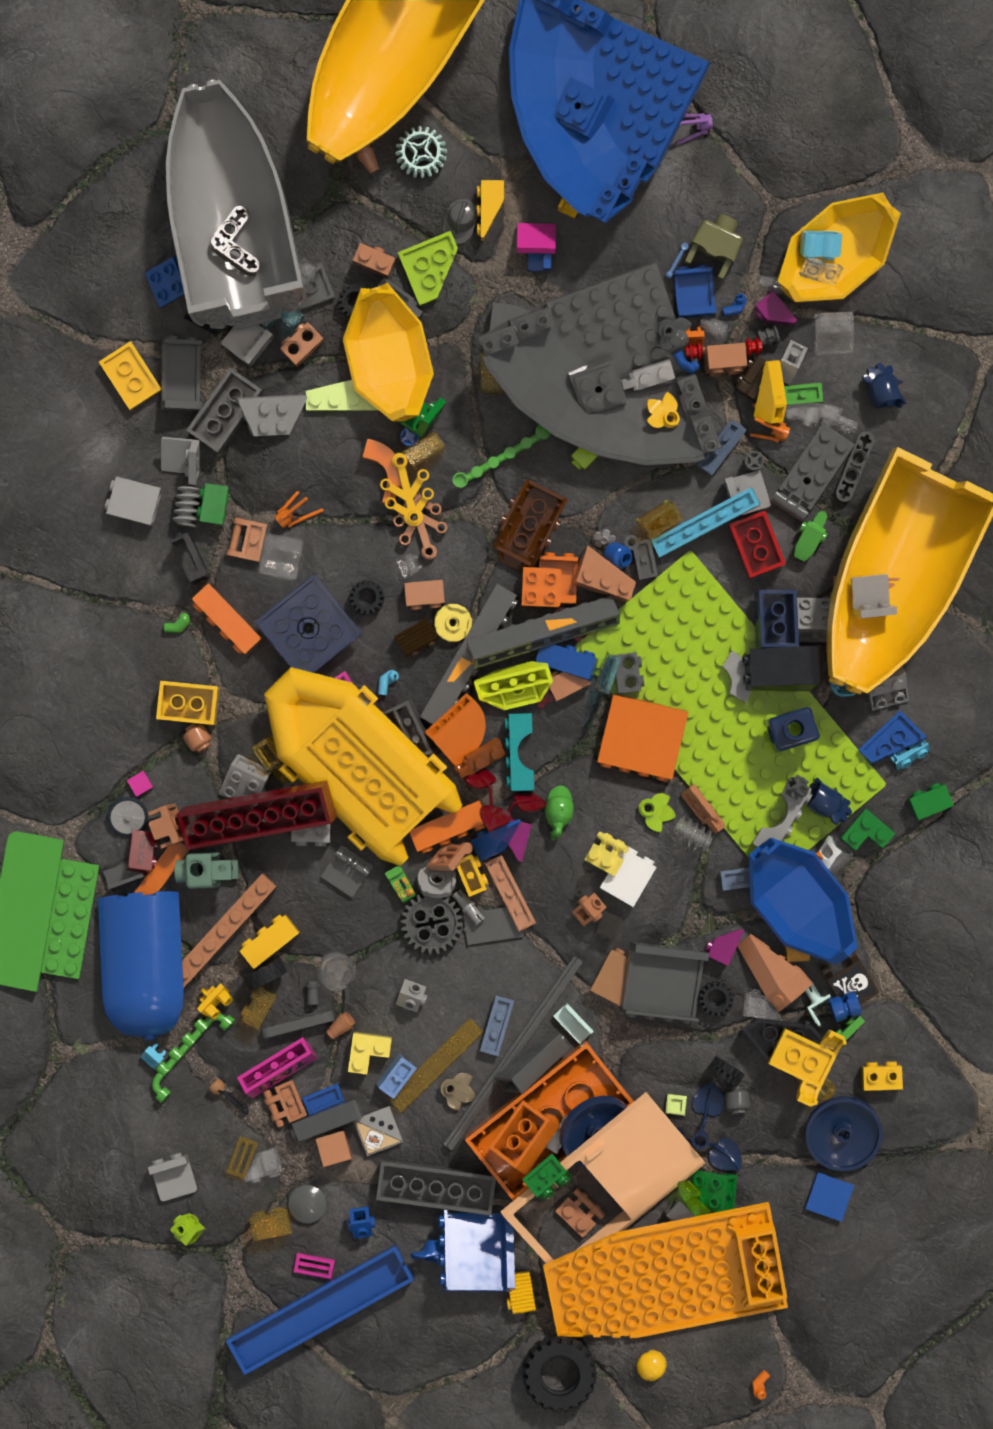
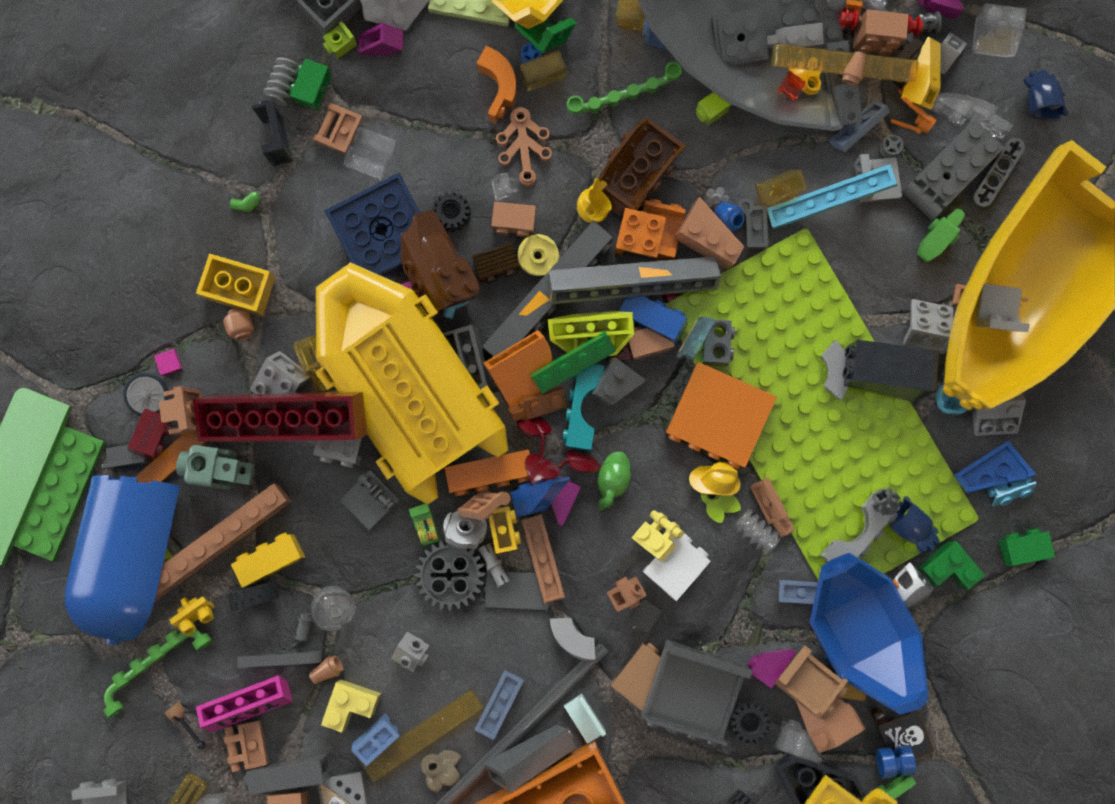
camera: 15 degrees right, 5 degrees down
(133, 501) = (228, 67): light grey brick -> none
(151, 1057) = (111, 664): medium azure tile -> none
(181, 457) = (286, 29): light grey bracket -> none
(227, 619) = (298, 206): orange brick -> none
(237, 454) = (343, 45): none -> lime brick
(259, 1008) = (240, 632): clear yellow brick -> none
(268, 450) = (380, 41): none -> magenta slope
(285, 515) = (383, 113): orange plant -> none
(323, 1099) = (290, 749): blue tile -> none
(365, 654) = (434, 263): none -> reddish brown slope
(407, 492) = (516, 108): yellow plant -> none
(494, 567) = (593, 203): none -> yellow hat
(504, 716) = (573, 362): none -> green plate
(545, 725) = (616, 382): none -> dark grey wing
(549, 959) = (571, 640): none -> light grey tile
(648, 795) = (715, 479): none -> yellow piece
(652, 426) = (791, 86): none -> clear red tile
(684, 364) = (838, 31): blue arm -> none
(695, 398) = (836, 61): none -> clear yellow beam
(704, 407) = (854, 70): none -> nougat cone
(756, 544) = (881, 233): red brick -> none
(760, 954) = (811, 683): none -> medium nougat panel
(776, 618) = (890, 313): dark blue brick -> none
(778, 729) = (877, 440): dark blue piece -> none
(804, 393) = (958, 85): bright green plate -> none
(816, 1000) = (862, 747): light aqua bracket -> none

